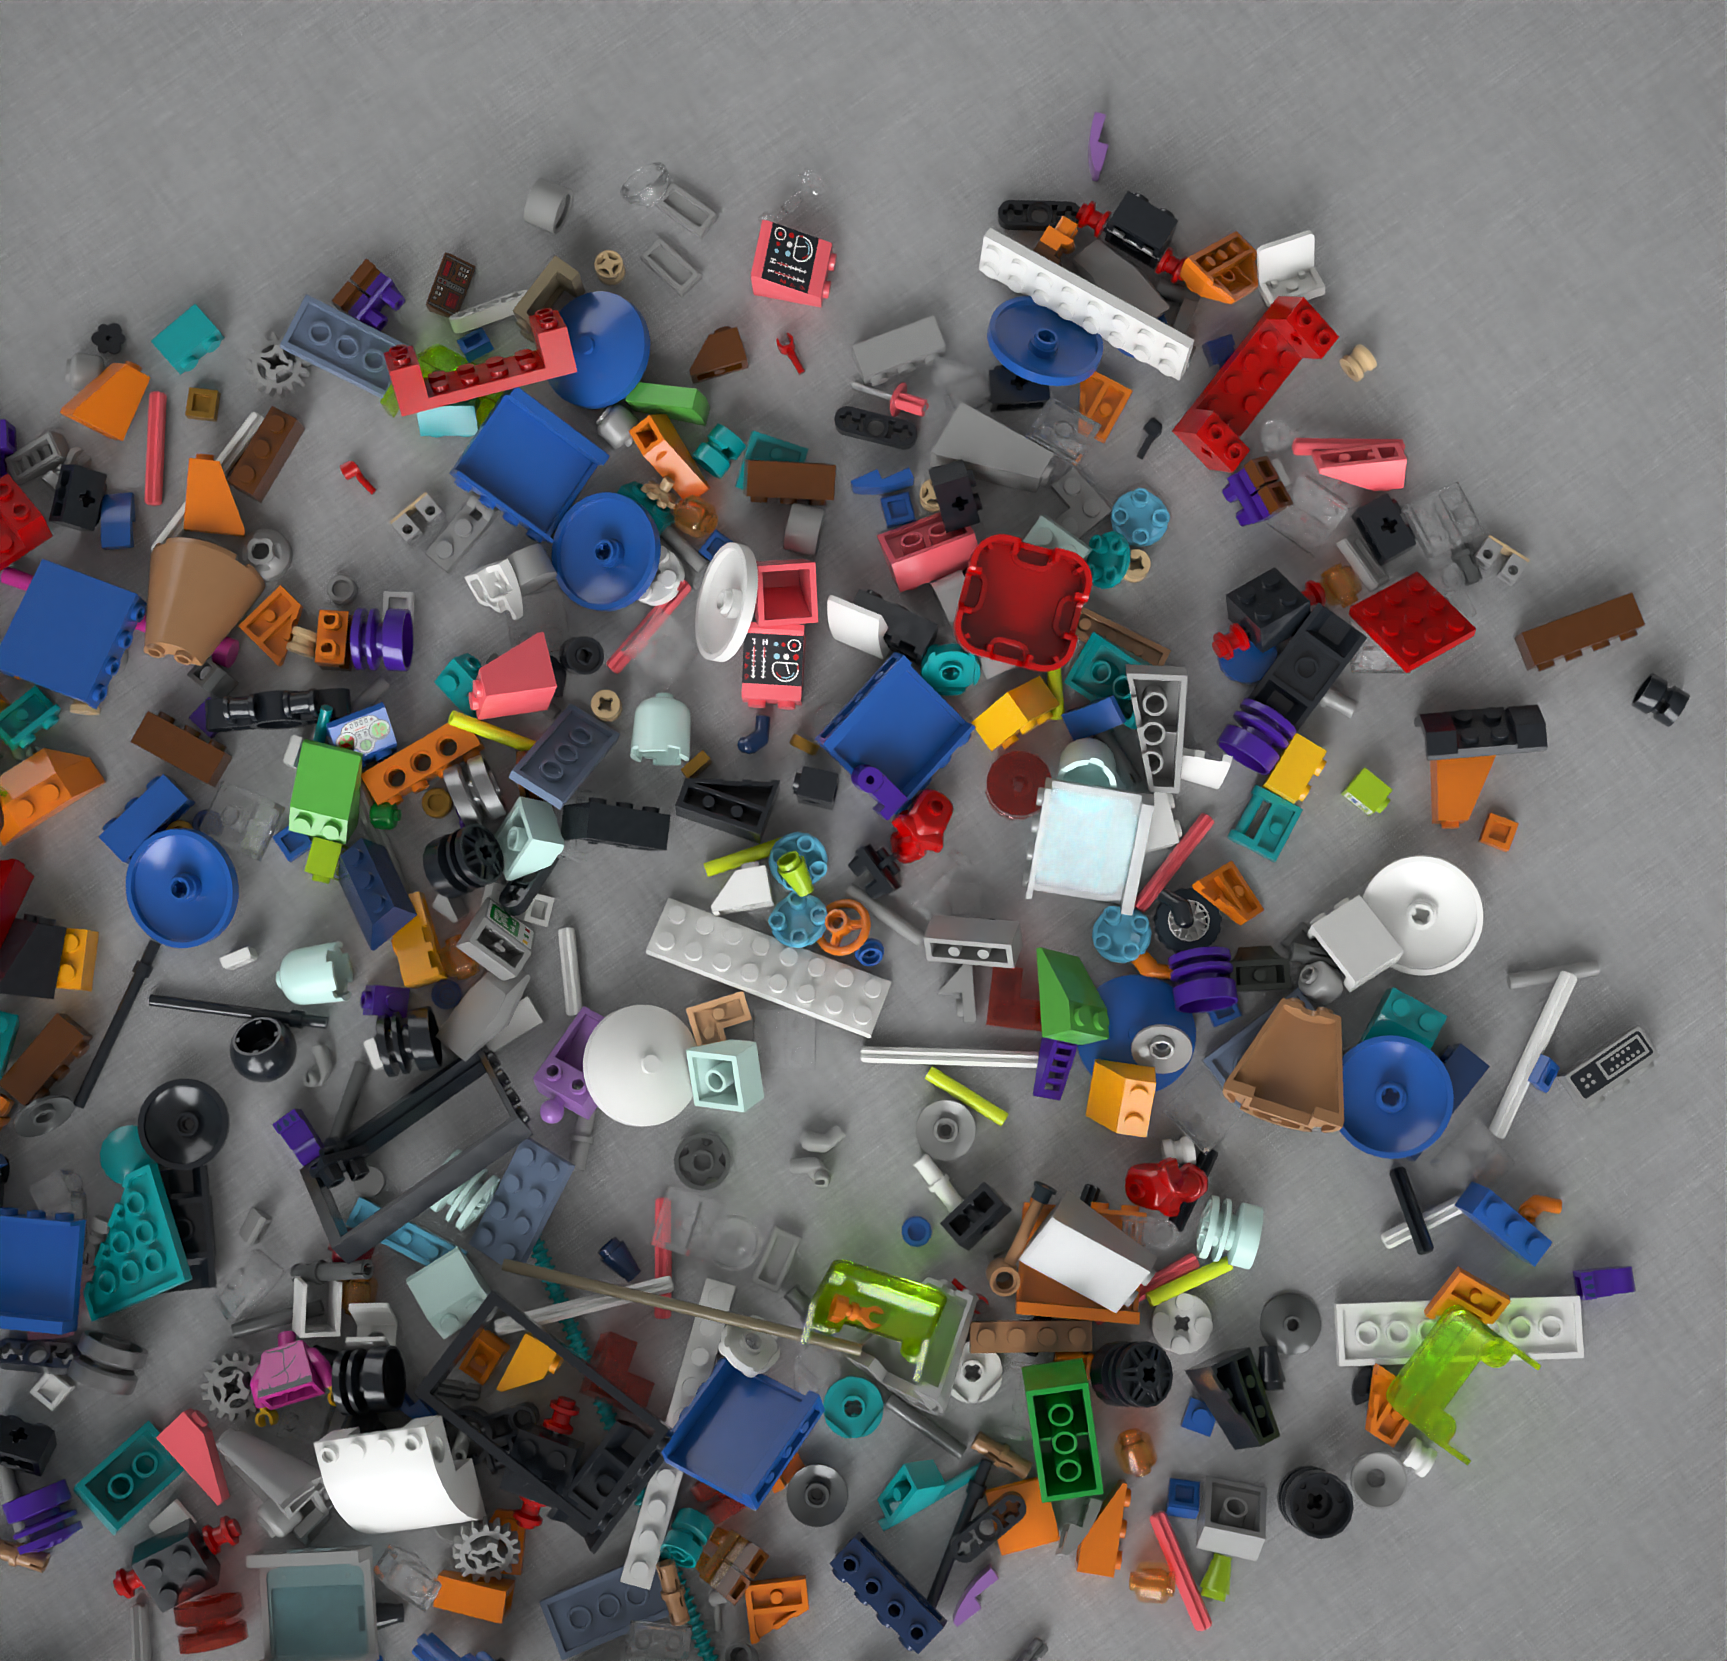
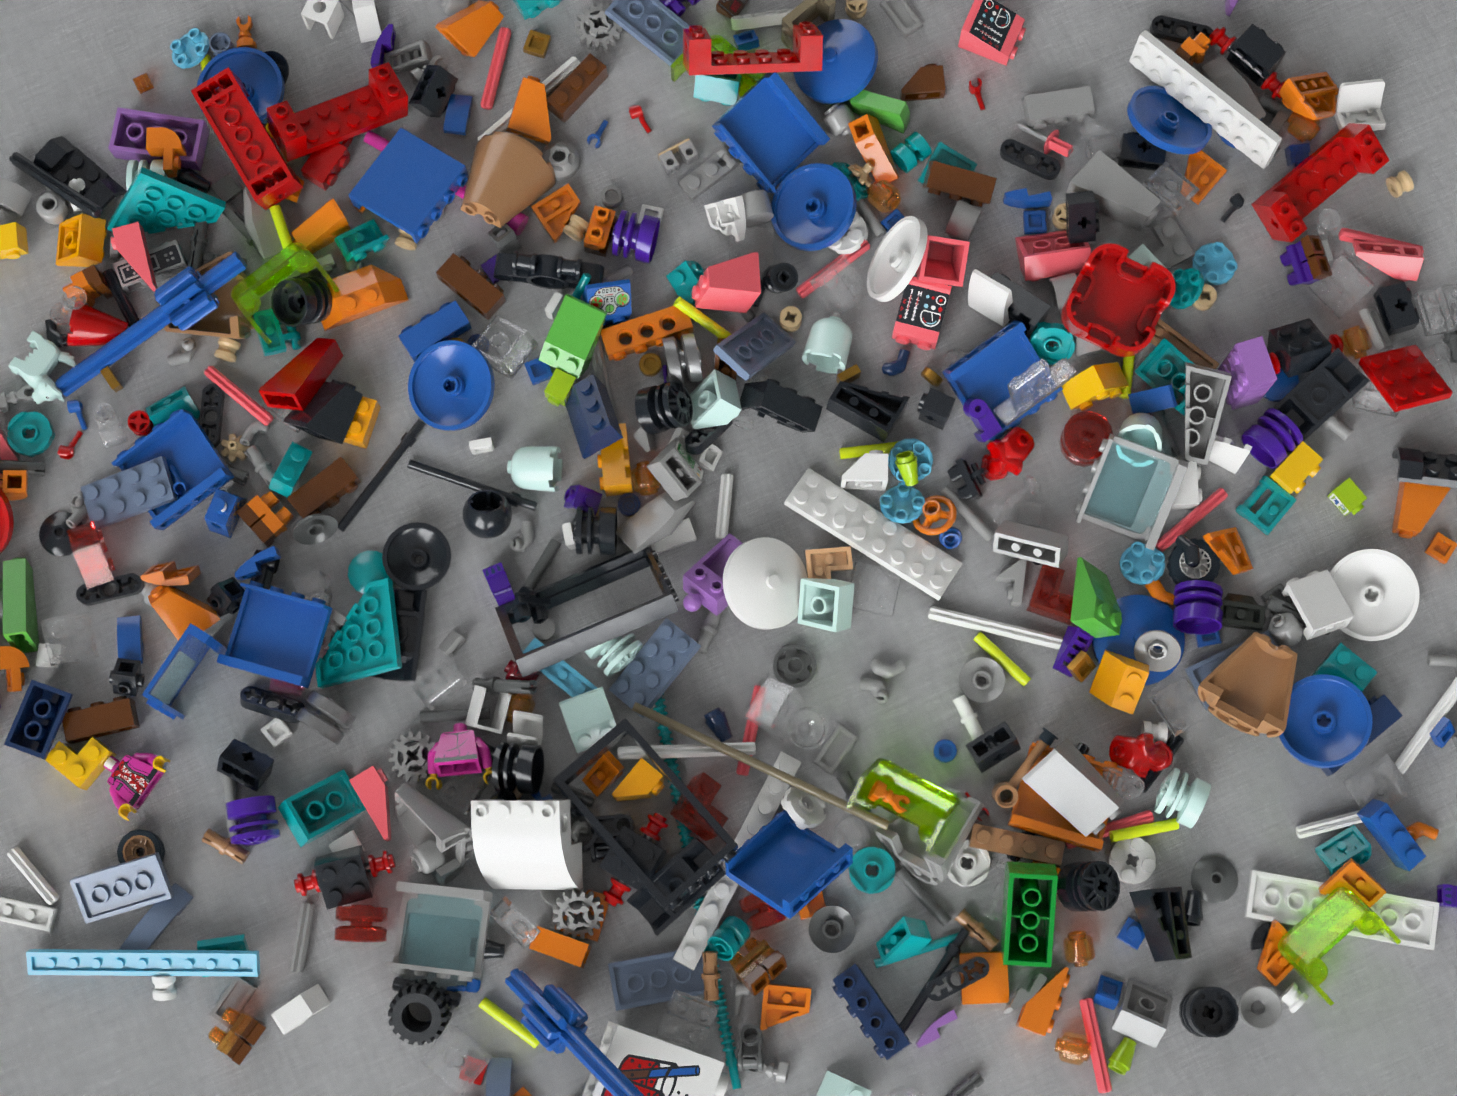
camera: 10 degrees right, 5 degrees down
(307, 511) = (598, 134): none -> blue hand
(384, 816) = (610, 365): green piece -> none
(937, 734) = (1033, 387): none -> clear bracket
(1069, 1085) = (1081, 666): none -> pearl gold tile
(1209, 659) = (1250, 372): none -> medium lavender brick
(1219, 314) = (1303, 127): none -> clear orange head
(1411, 1210) = (1322, 812): black axle -> none
(1452, 1248) = (1344, 846): none -> teal bracket

